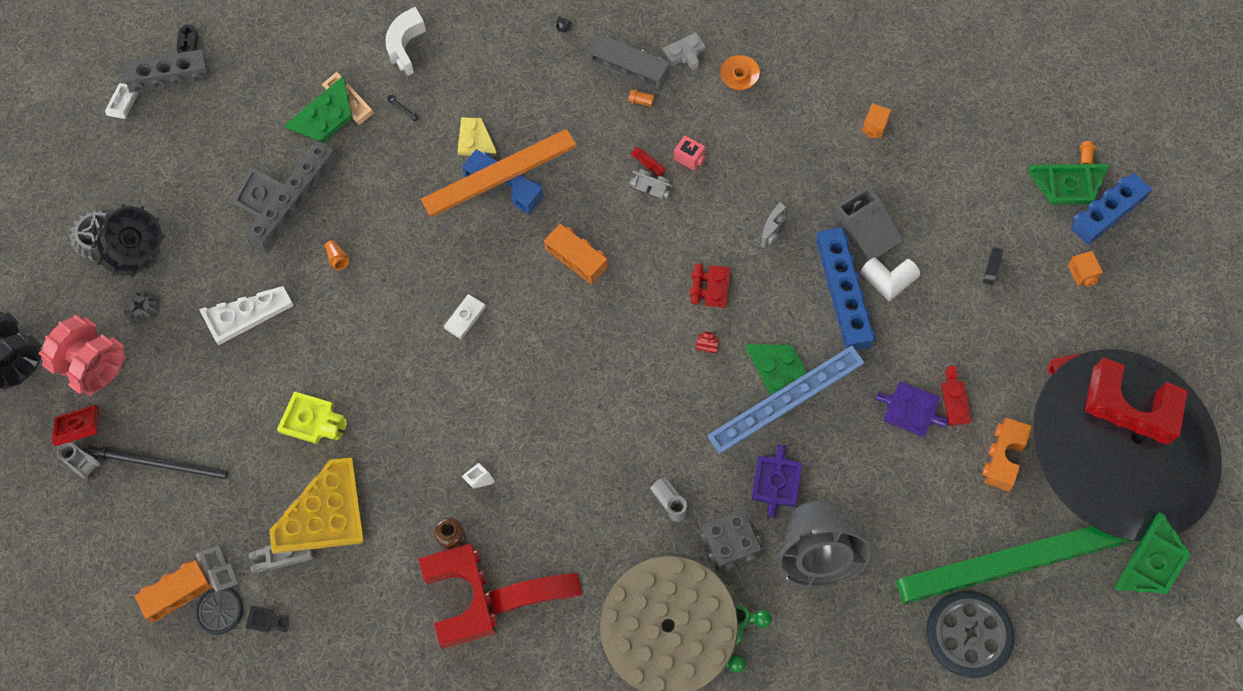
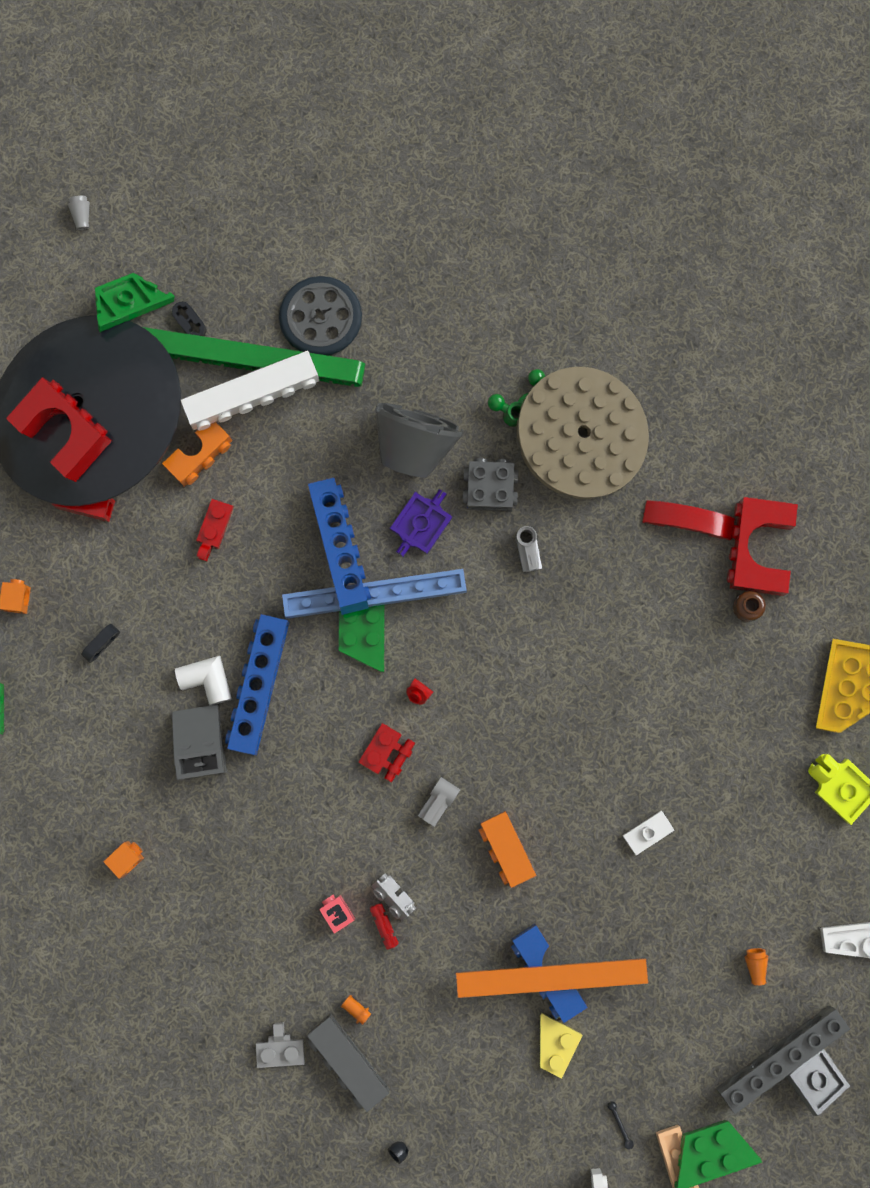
camera: 160 degrees left, 15 degrees up
(478, 477) = (699, 655): white slope -> none
(648, 268) = (440, 799): none -> light grey piece
(740, 65) = (223, 991): orange dish -> none
(772, 225) = (298, 783): light grey slope -> none
(851, 427) = (356, 598): none -> blue brick
(911, 409) = (259, 536): dark purple plate -> none
(991, 520) = (250, 391): none -> white brick
(1085, 577) = (193, 317): none -> black beam

